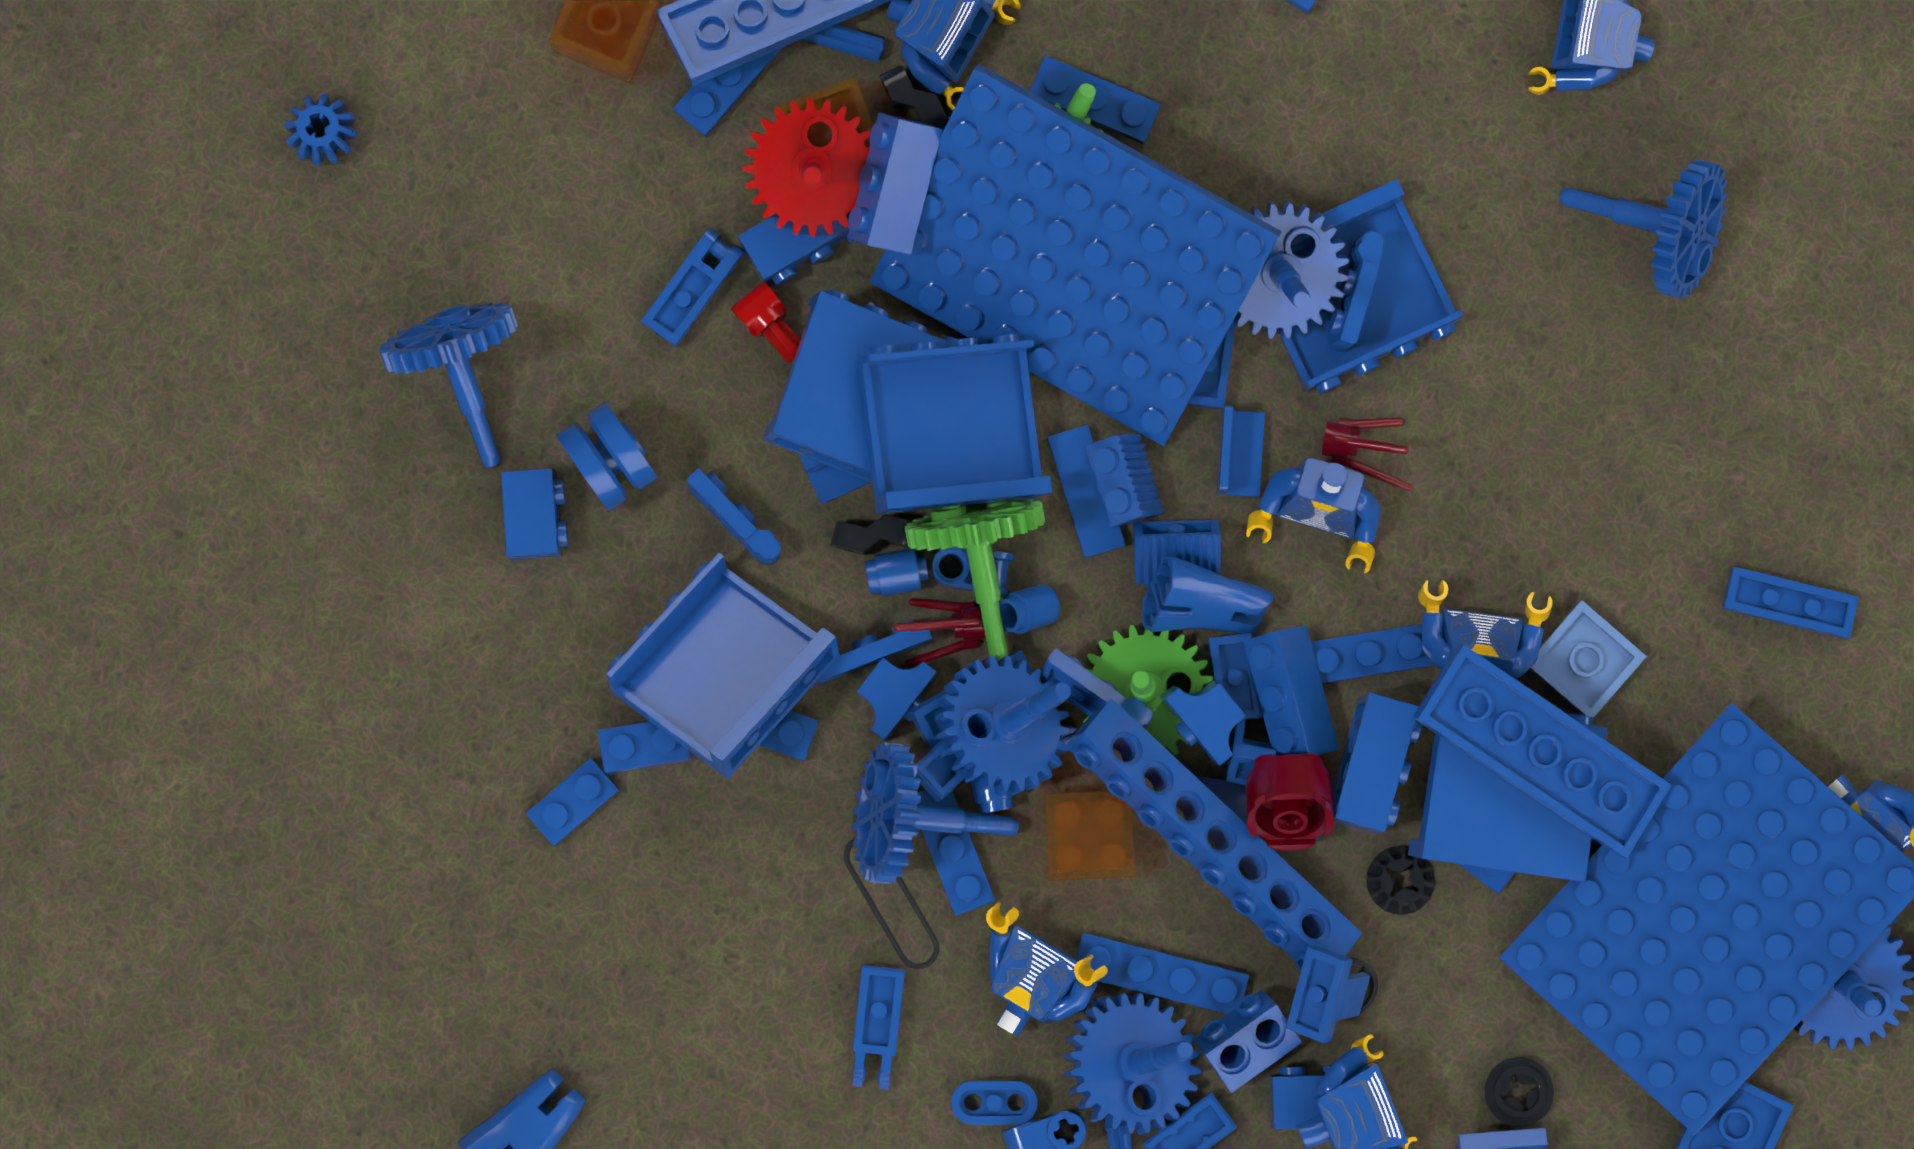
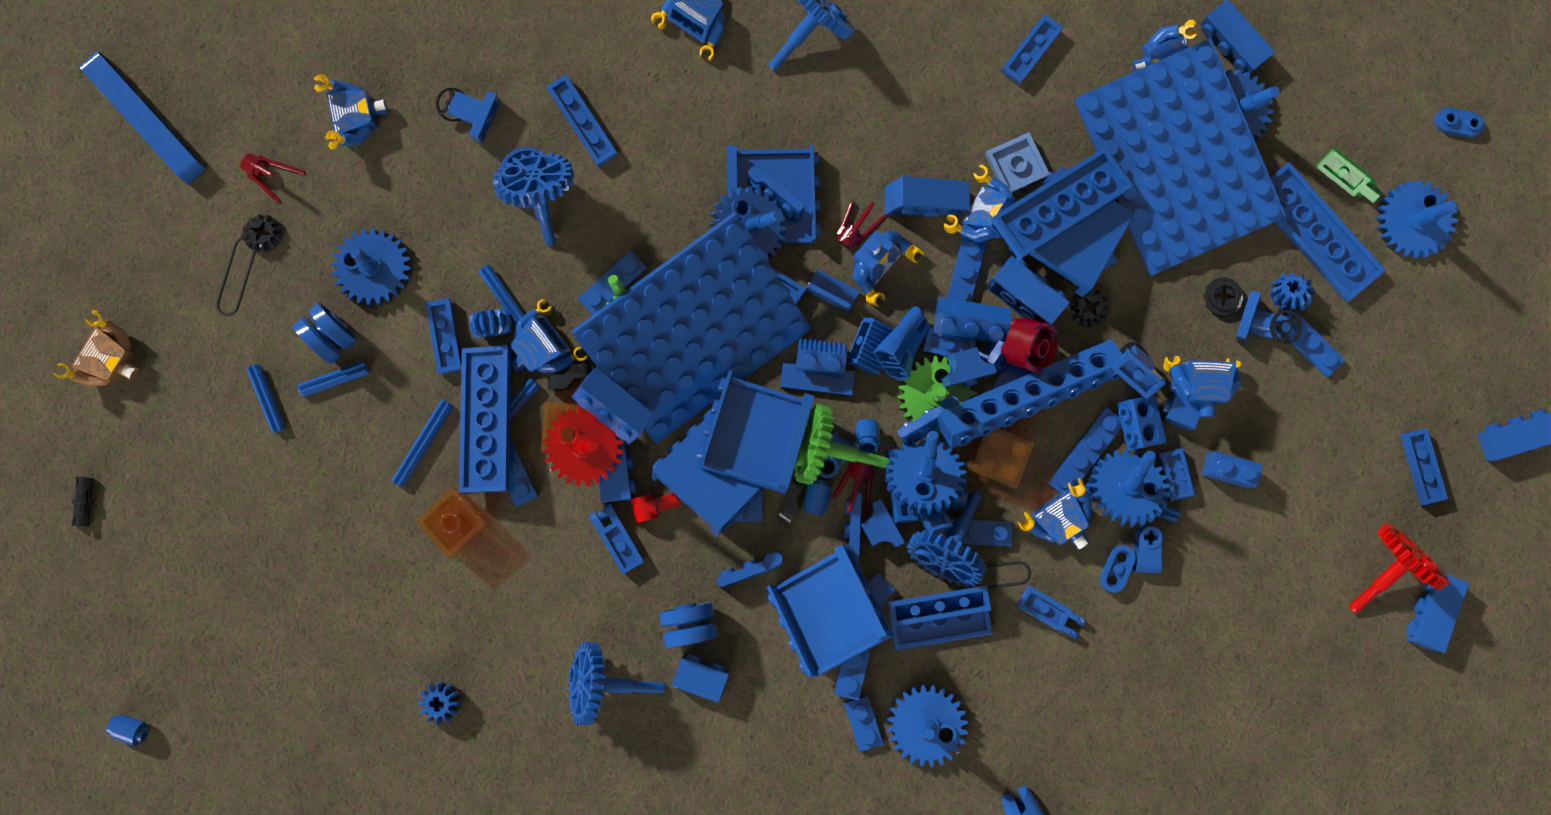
camera: 70 degrees left, 0 degrees up
(613, 889) = (919, 723): none -> blue gear
(791, 849) = (940, 617): none -> blue slope
(1460, 537) = (927, 197): none -> blue wedge

